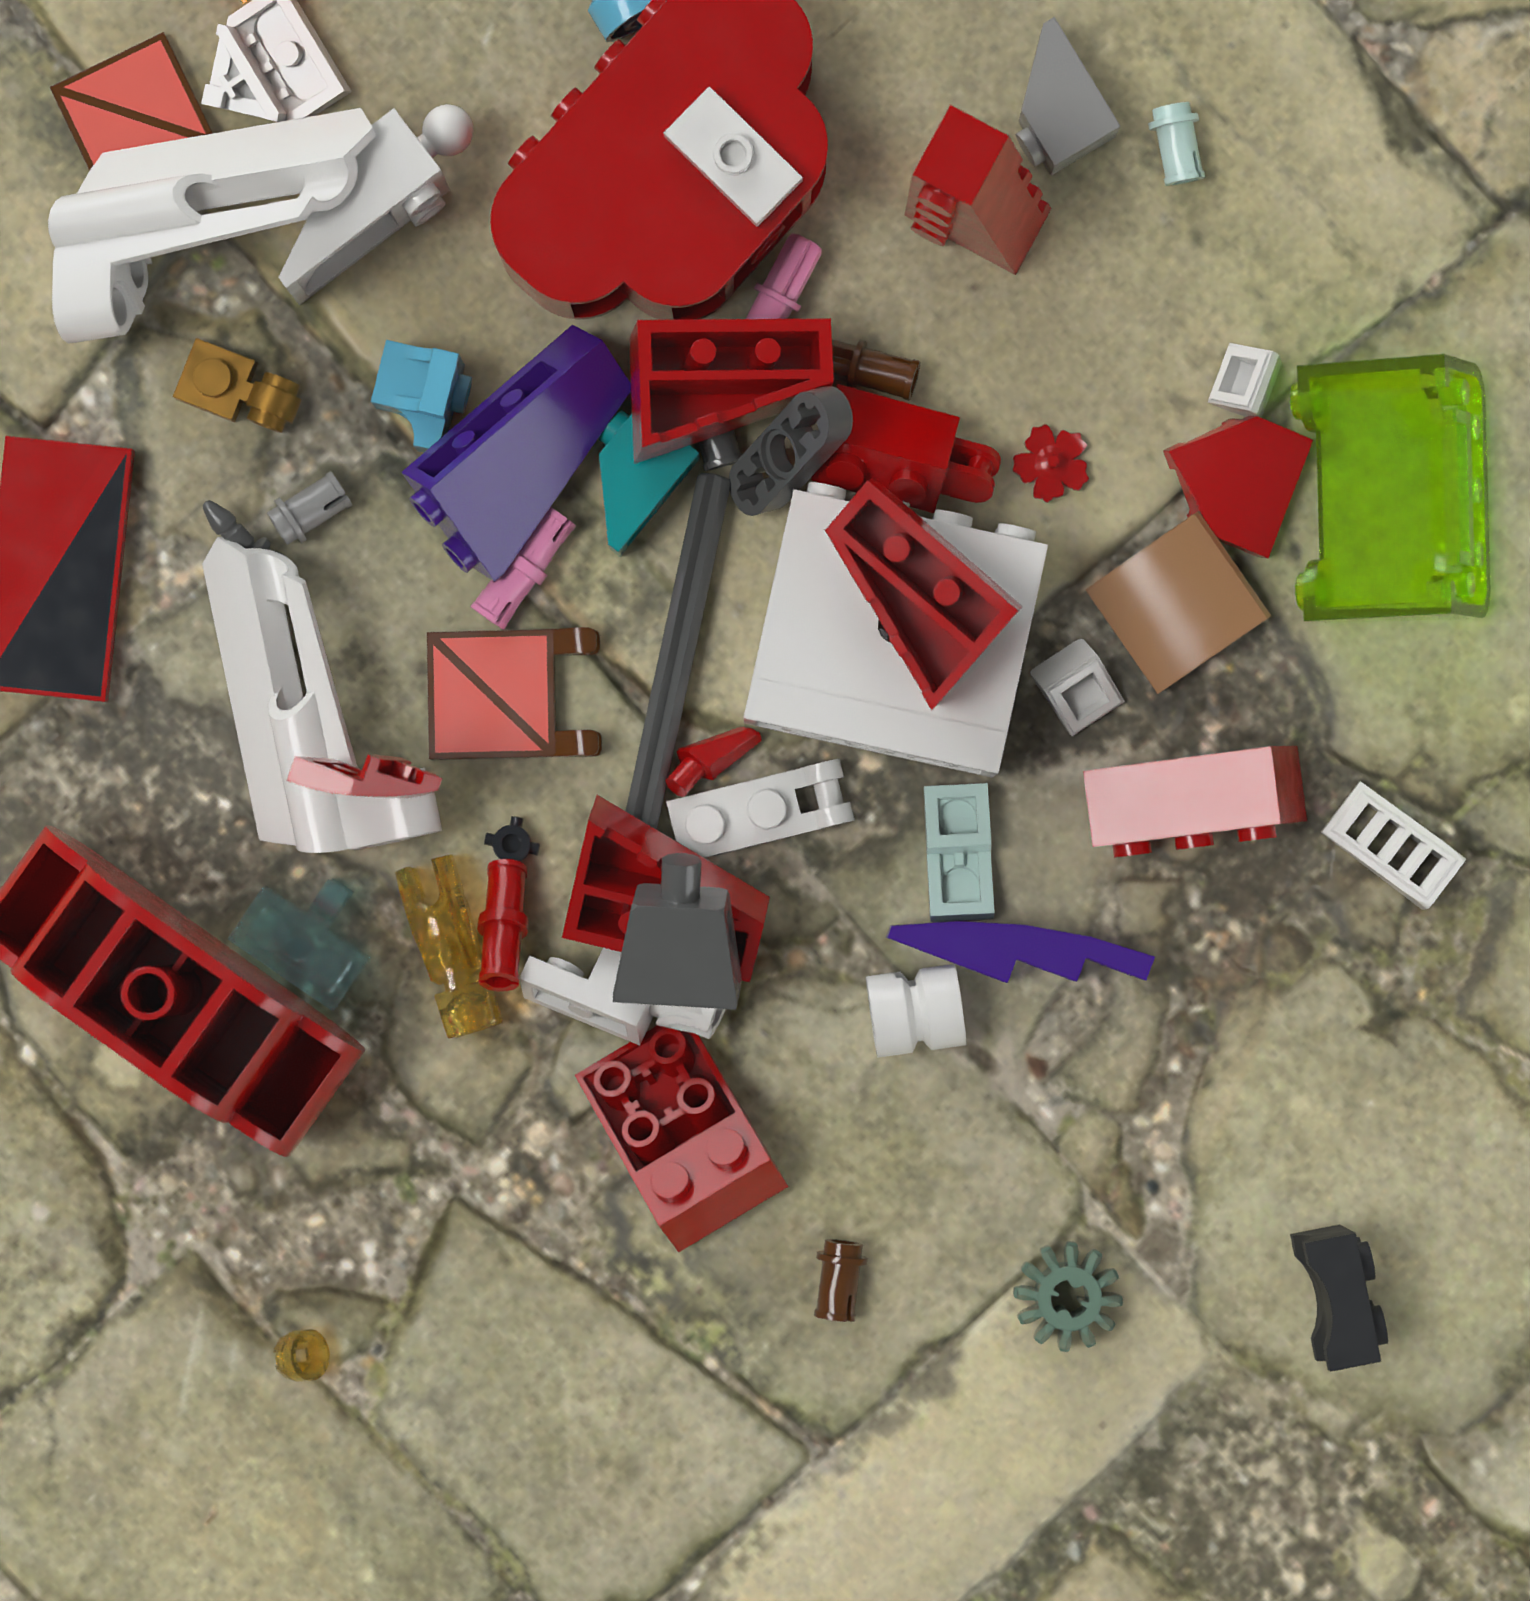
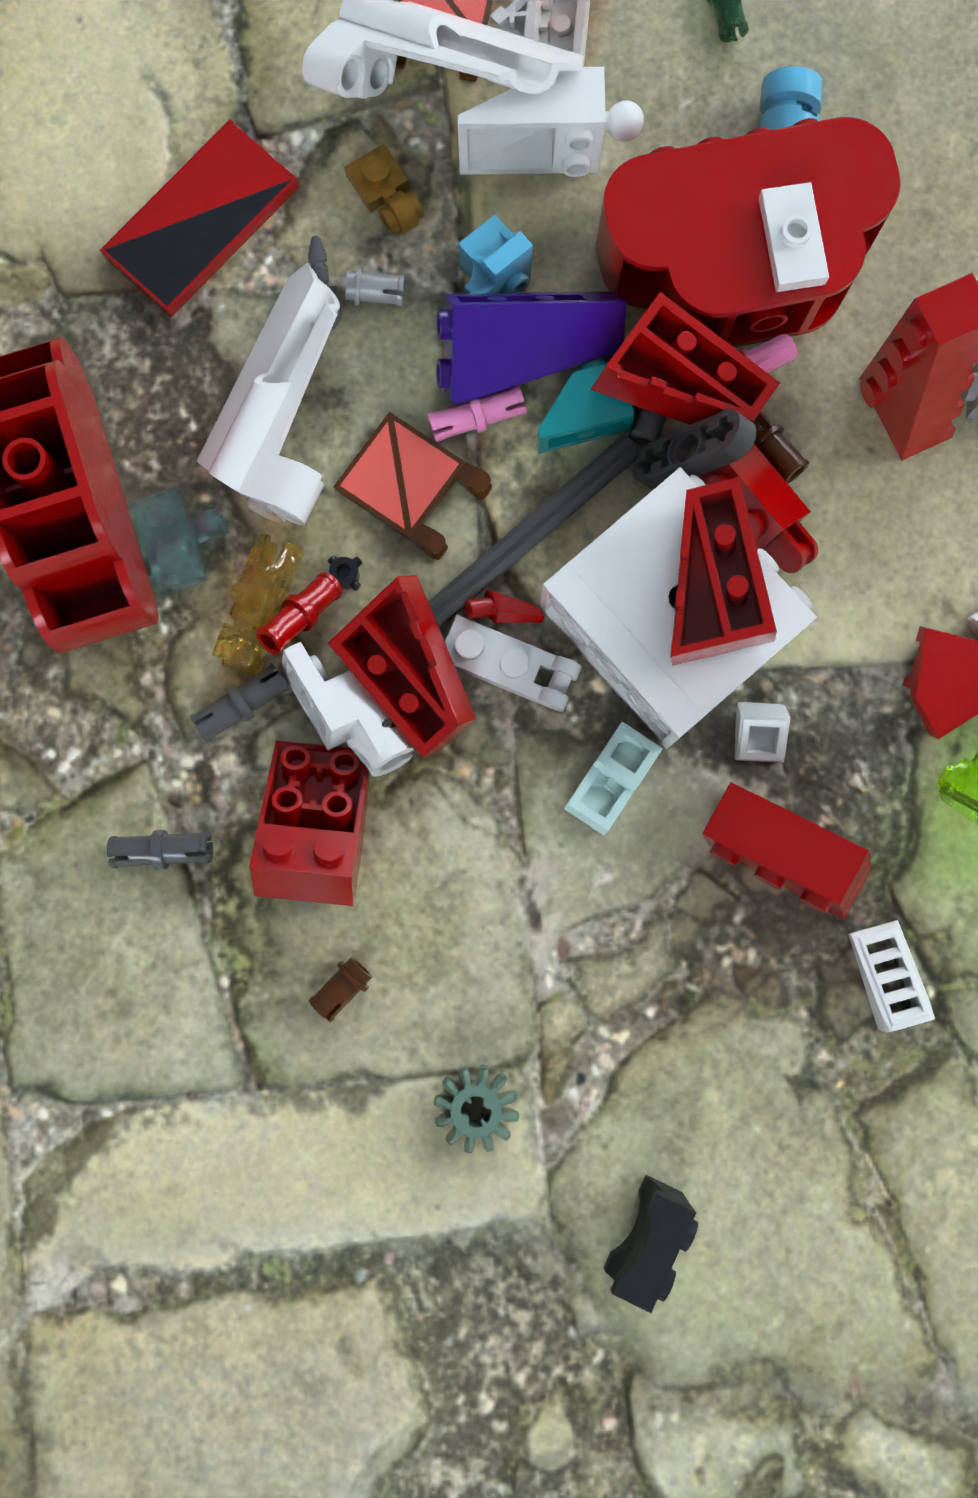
camera: 35 degrees right, 5 degrees down
(378, 778) = (276, 441): slope -> none
(508, 1064) = (239, 702): none -> dark grey pin
(543, 1277) = (160, 849): none -> dark grey pin
(680, 942) = (396, 694): dark grey torso -> none
(916, 1010) = (514, 855): white wheel -> none
(997, 946) = (594, 852): dark purple slope -> none
(1051, 463) = (842, 587): red plant -> none
(1178, 602) = (863, 724): medium nougat slope -> none

